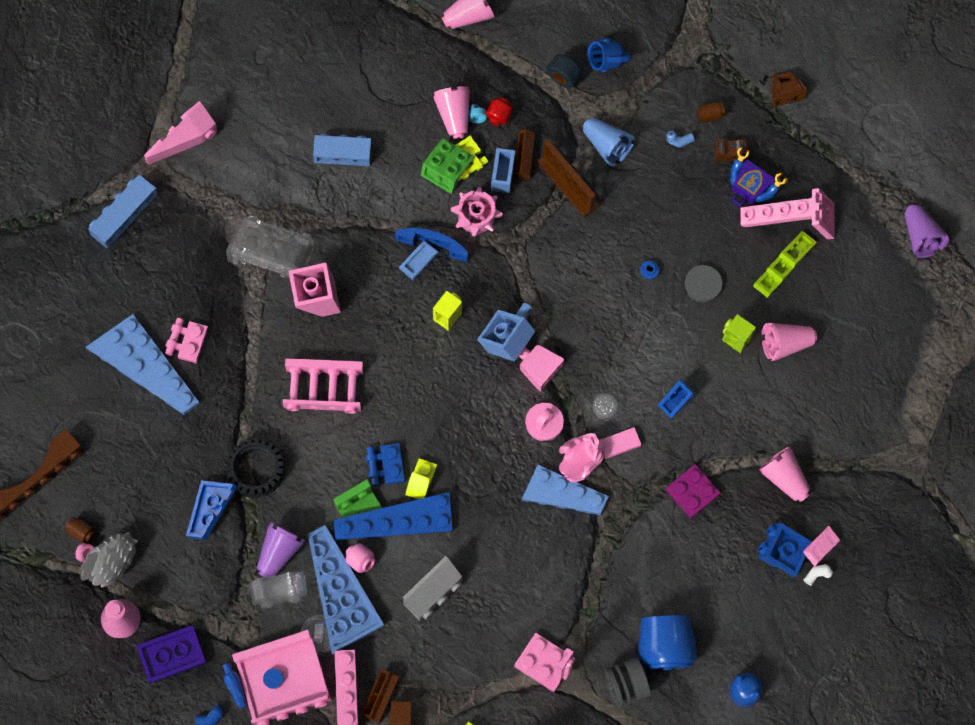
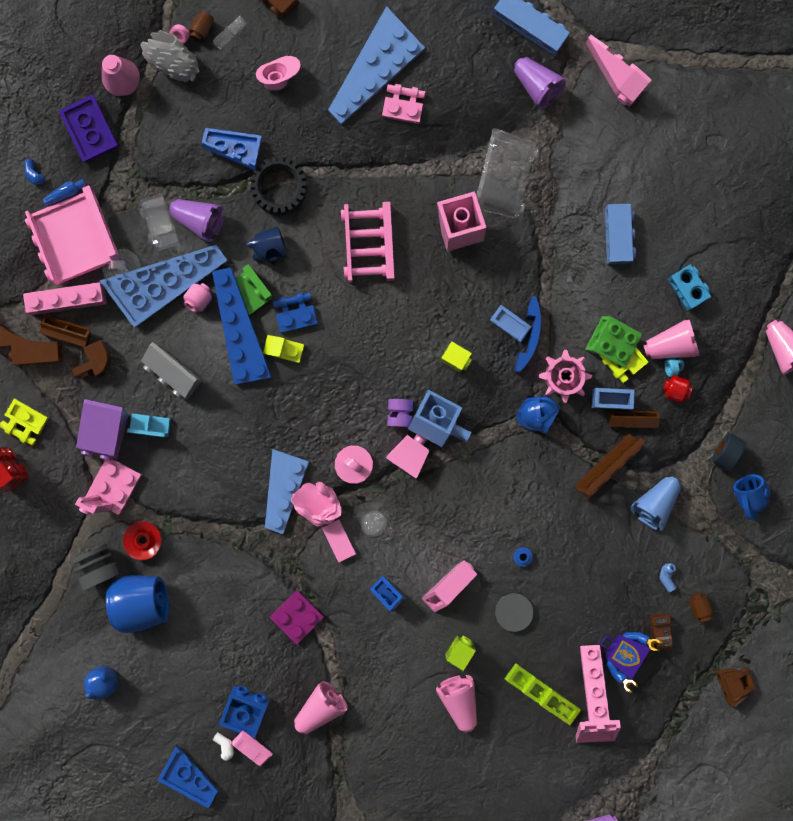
camera: 80 degrees right, 15 degrees up
(90, 503) = (229, 32): none -> clear axle
(138, 455) = (276, 73): none -> bright pink piece
(182, 209) = (539, 81): none -> medium lavender cone
(273, 678) = (71, 227): blue tile -> none
(315, 480) = (268, 245): none -> dark blue piece
(404, 96) = (684, 290): none -> dark azure brick
(414, 663) = (99, 360): none -> reddish brown brick
(486, 619) = (149, 425): none -> medium azure panel
(486, 663) = (101, 430): none -> medium lavender slope
(490, 370) = (400, 412): none -> medium lavender wheel
(511, 240) = (537, 413): none -> blue helmet
(606, 626) = (132, 541): none -> red dish
(674, 340) = (449, 586): none -> bright pink slope
(849, 612) = (186, 778): none -> blue wing

